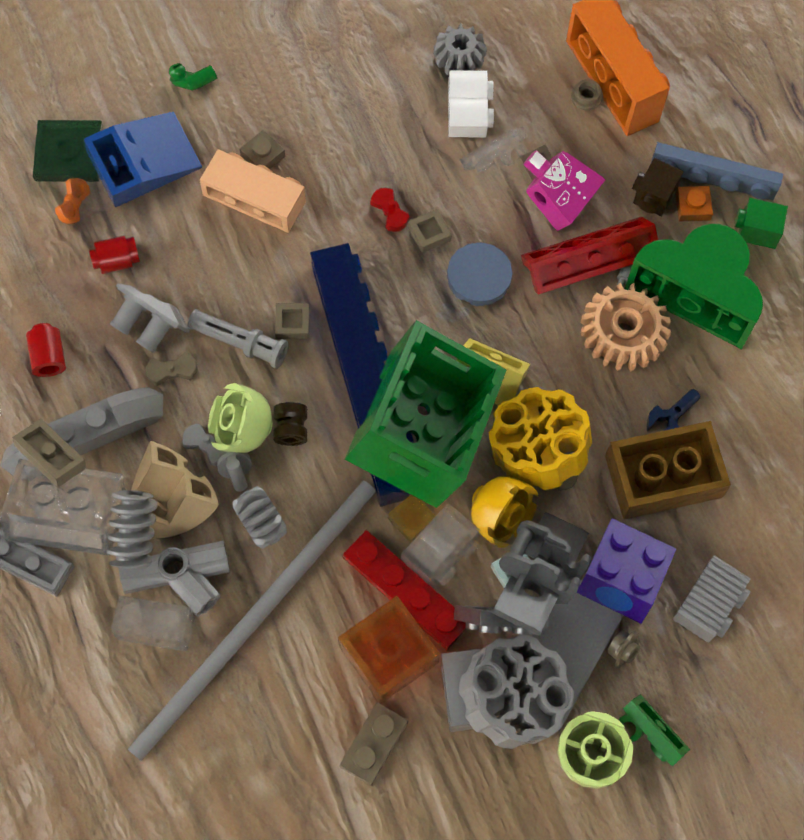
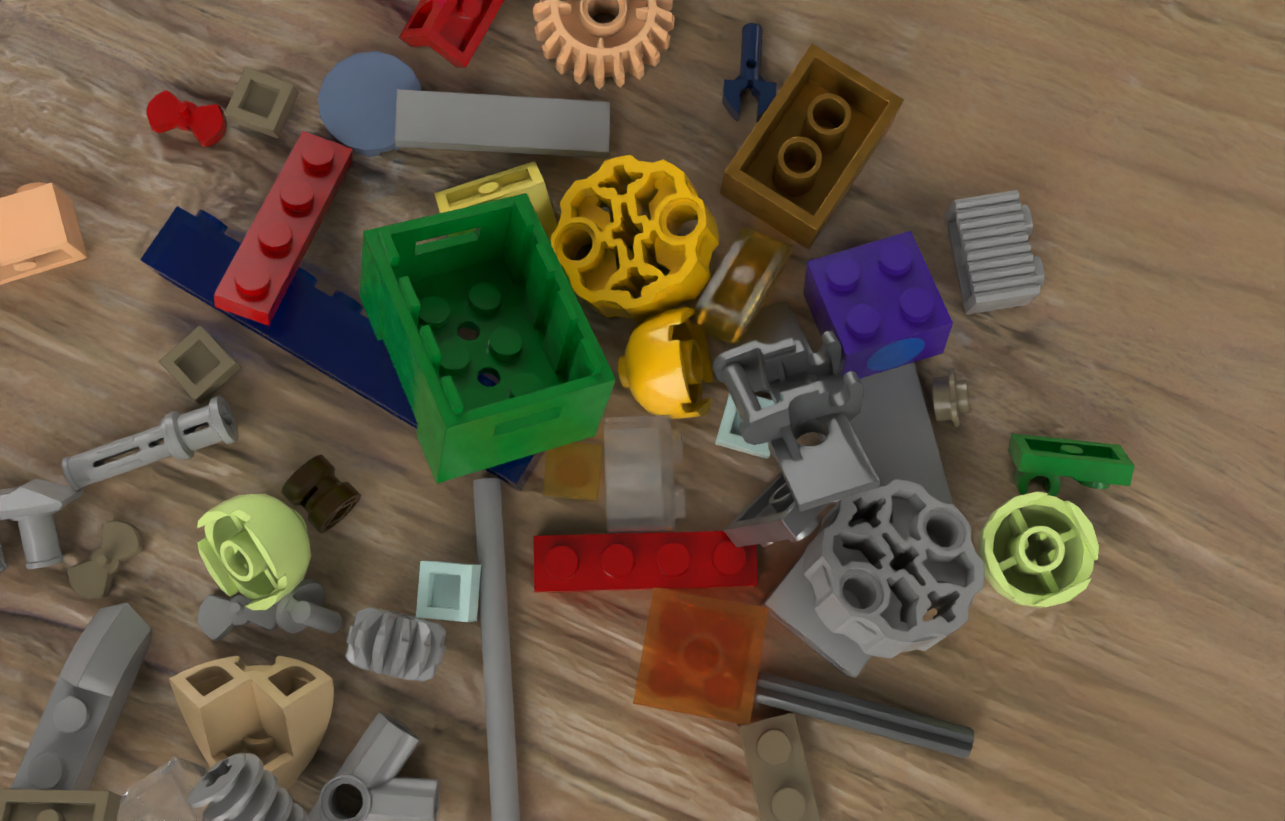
camera: 45 degrees left, 10 degrees up
(305, 517) = (448, 591): none -> light aqua plate
(386, 293) = (283, 229): none -> red plate
(440, 754) = (864, 715): none -> dark grey axle
(531, 334) = (502, 124): none -> light grey tile
(571, 503) = (741, 285): none -> clear yellow brick

